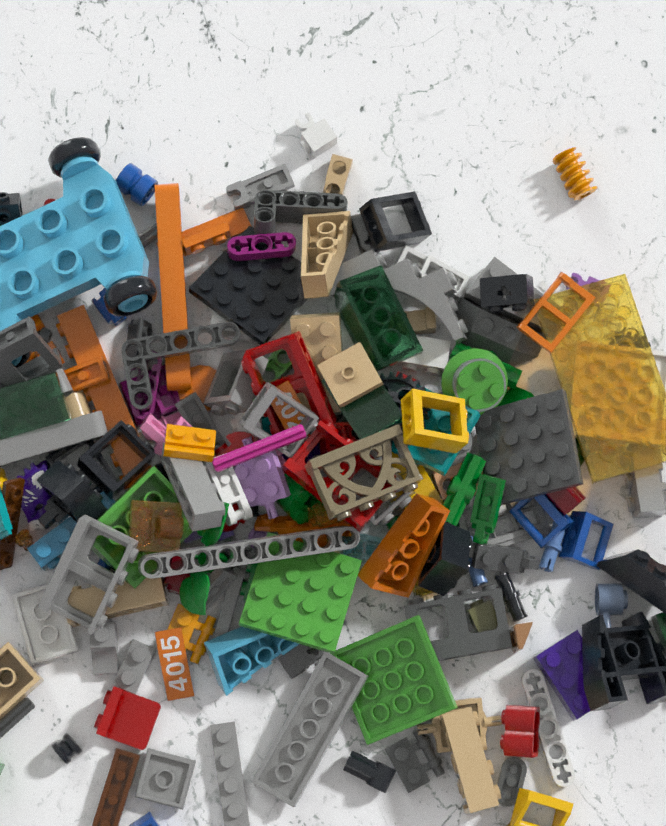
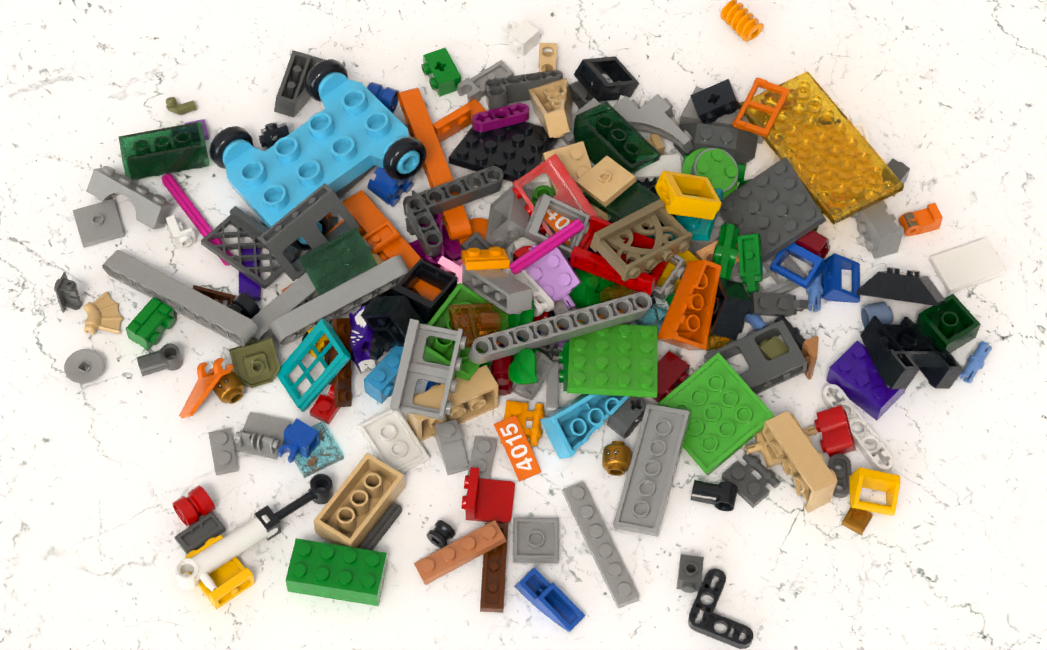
camera: 10 degrees left, 20 degrees down
(24, 539) = (358, 375): clear orange arm -> none
(49, 132) = (292, 91): none -> dark grey wedge
(81, 775) = (460, 552): none -> nougat plate
(212, 150) = (441, 71): none -> green brick
(276, 704) = (616, 458): none -> pearl gold head
(361, 615) = (670, 374): none -> dark red brick

